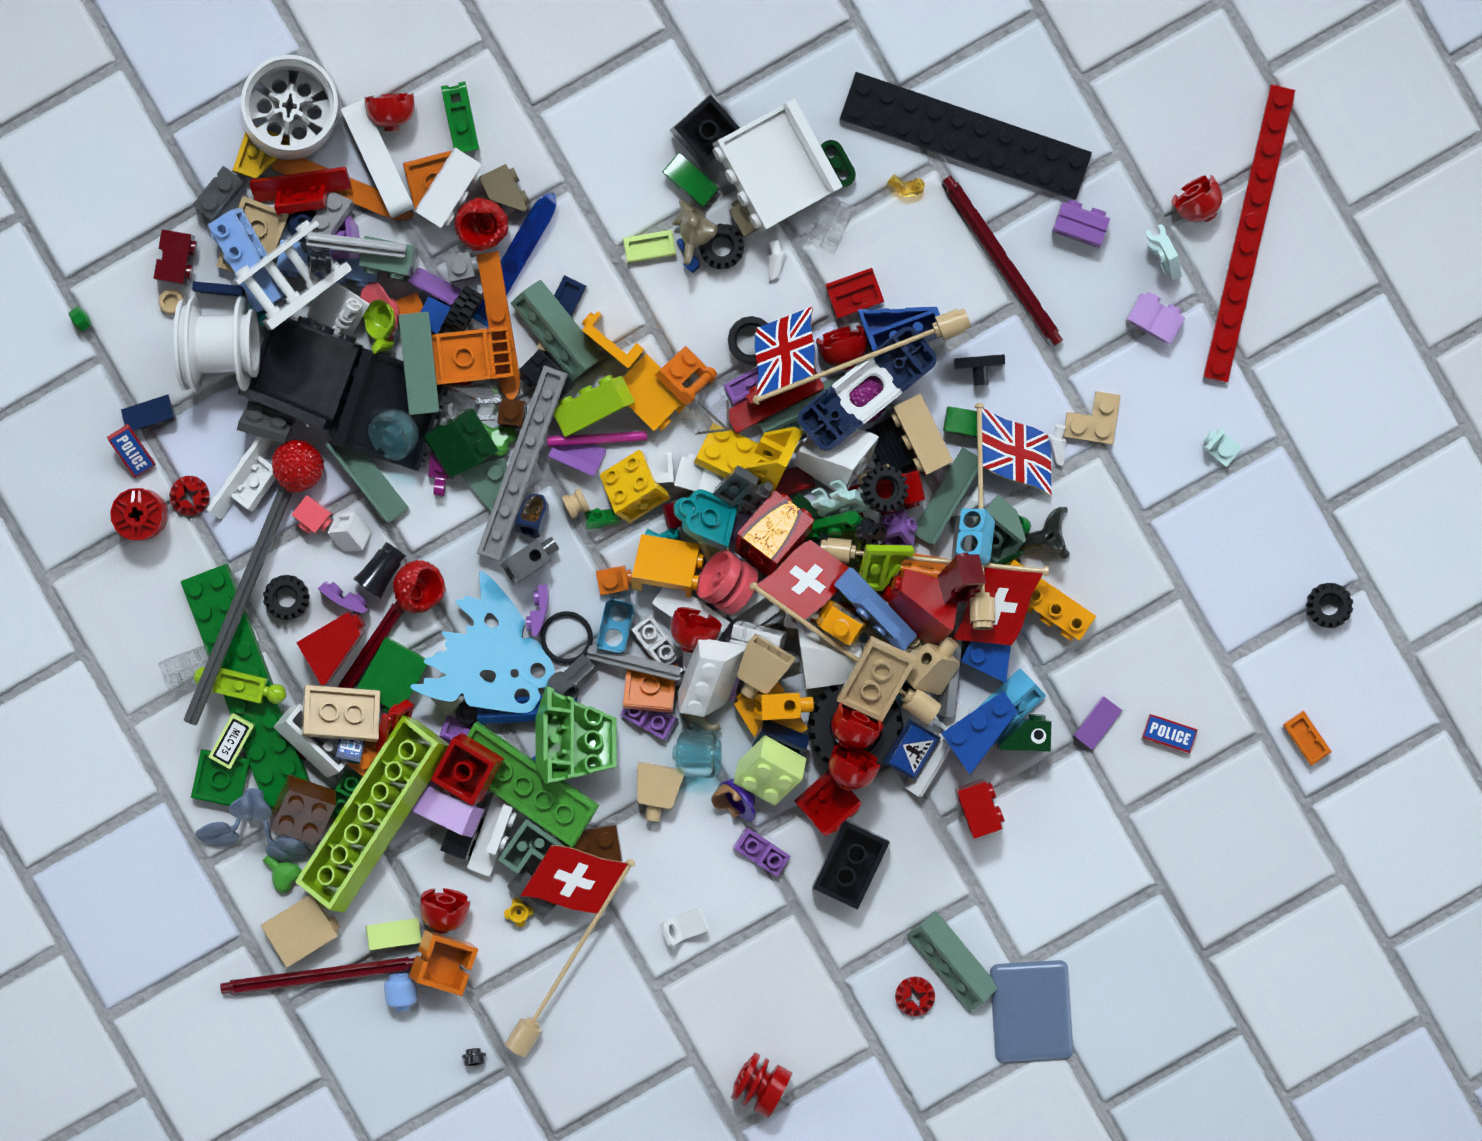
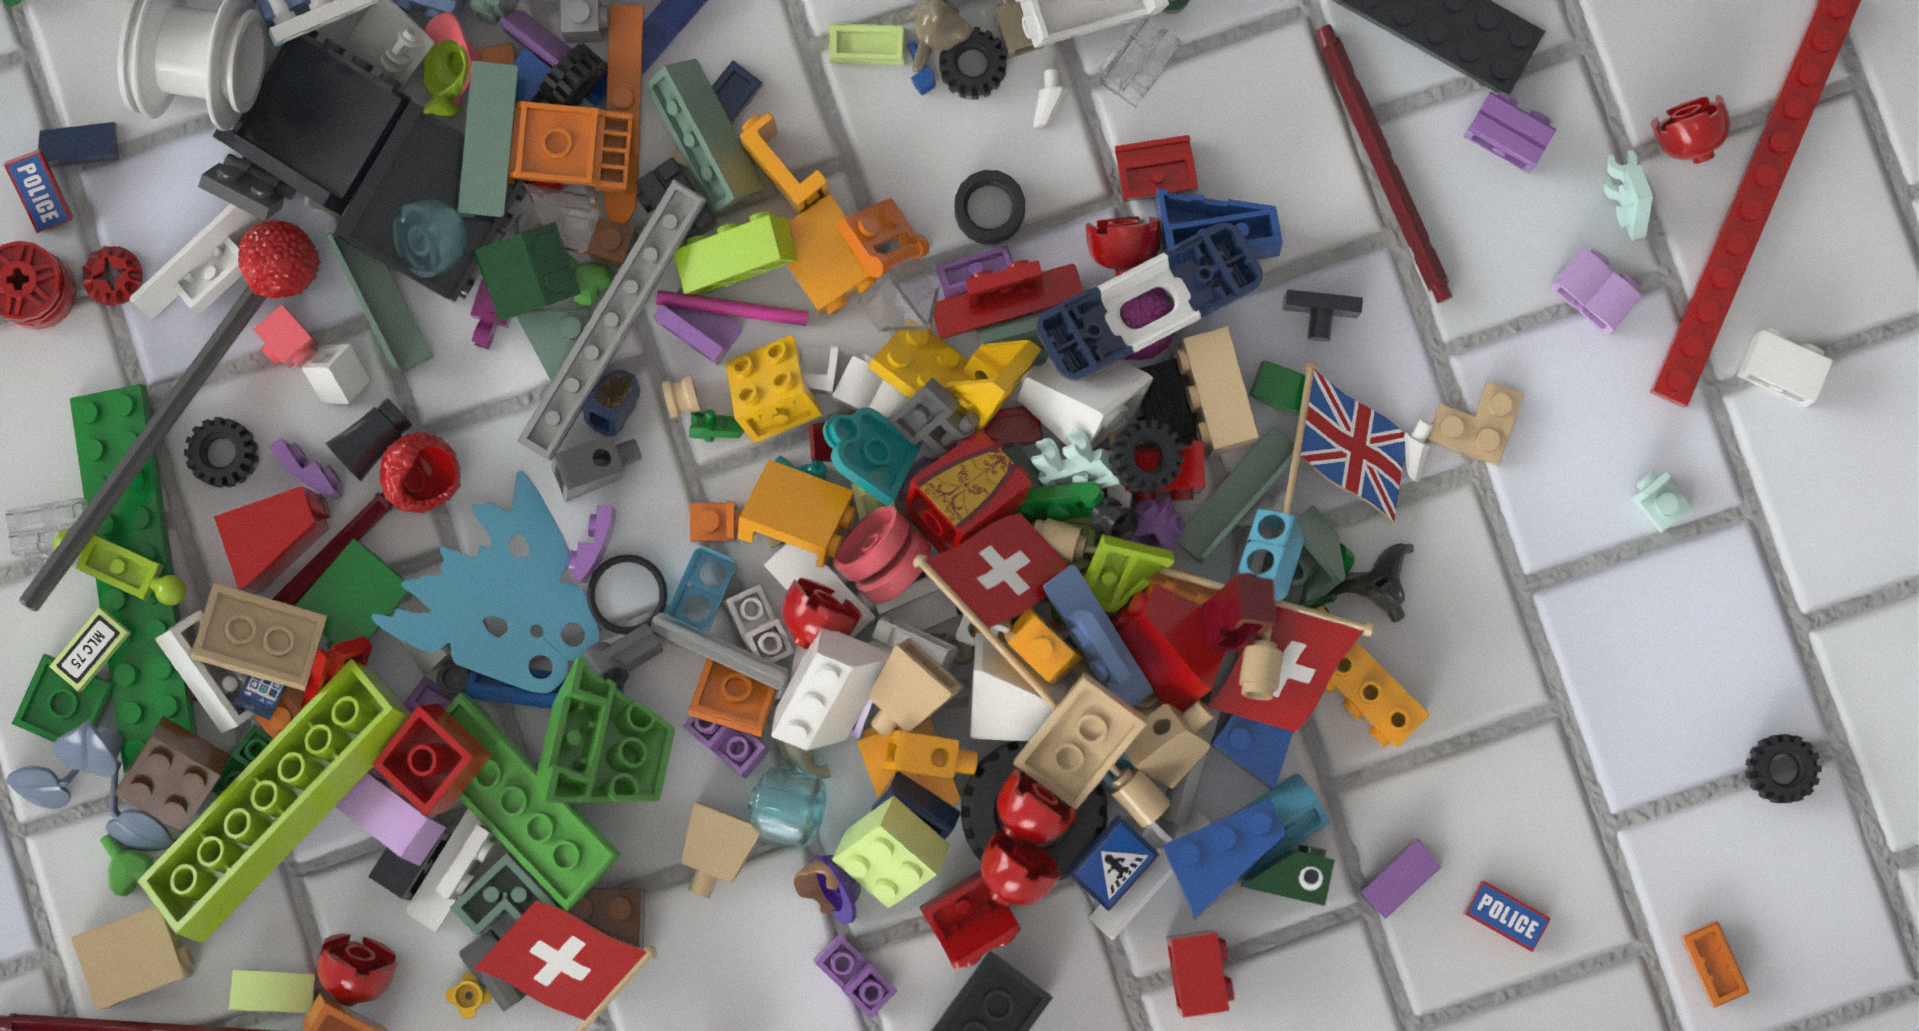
camera: 10 degrees right, 5 degrees down
(788, 352) = (1041, 232): flag -> none
(907, 188) = (1262, 32): clear yellow arm -> none
(1286, 344) = (1785, 366): none -> white brick

